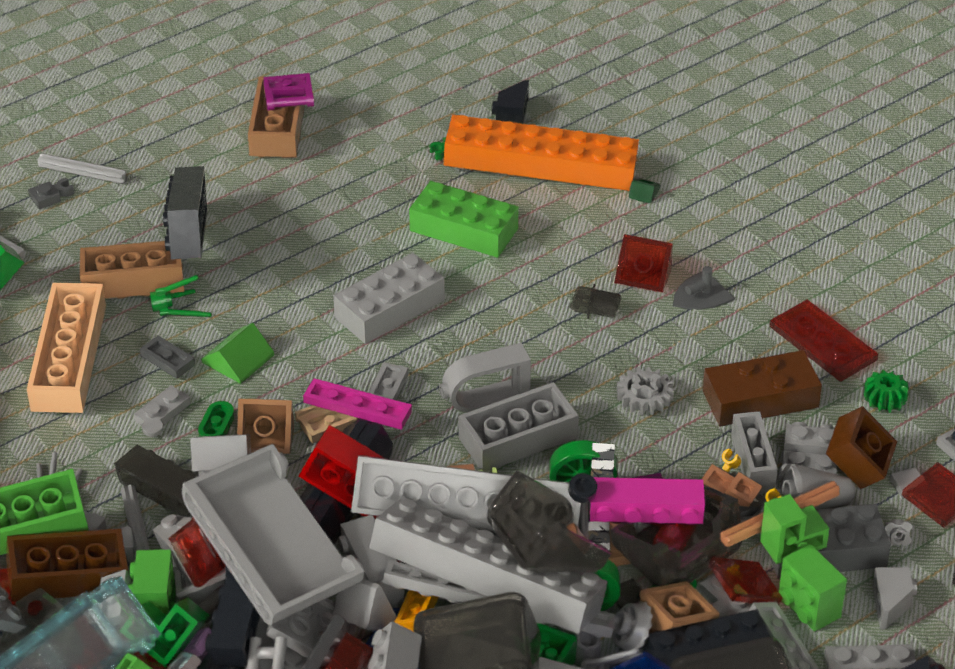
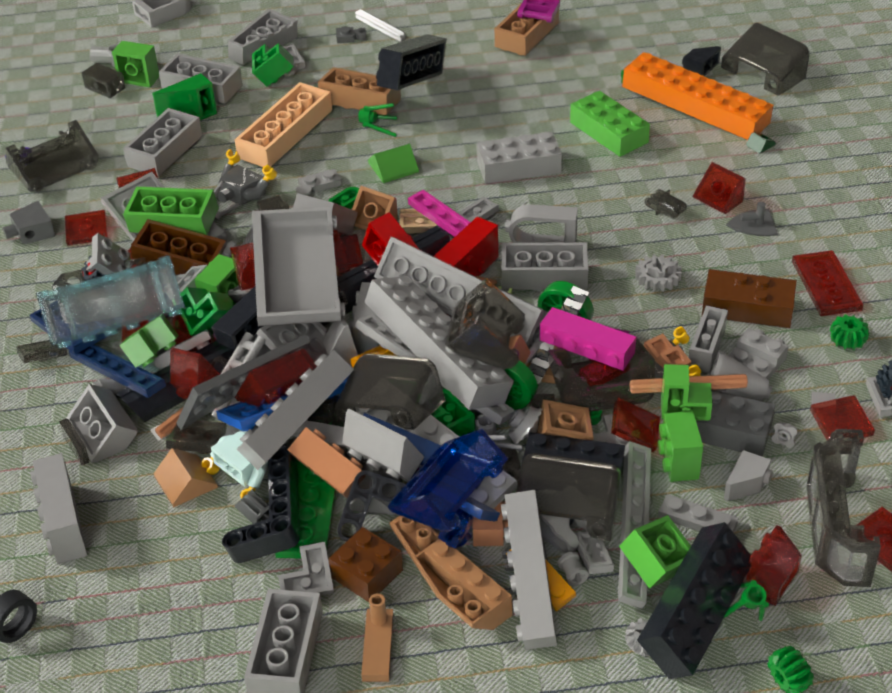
camera: 30 degrees right, 0 degrees up
(74, 443) = (243, 184): none -> dark grey torso
(167, 357) = (345, 151): dark grey plate -> none
(427, 430) = (473, 247): none -> red brick
(582, 488) = (538, 311): black tile -> none
(590, 73) = (770, 52): none -> clear smoke windscreen
(861, 447) = (793, 362): reddish brown brick -> none

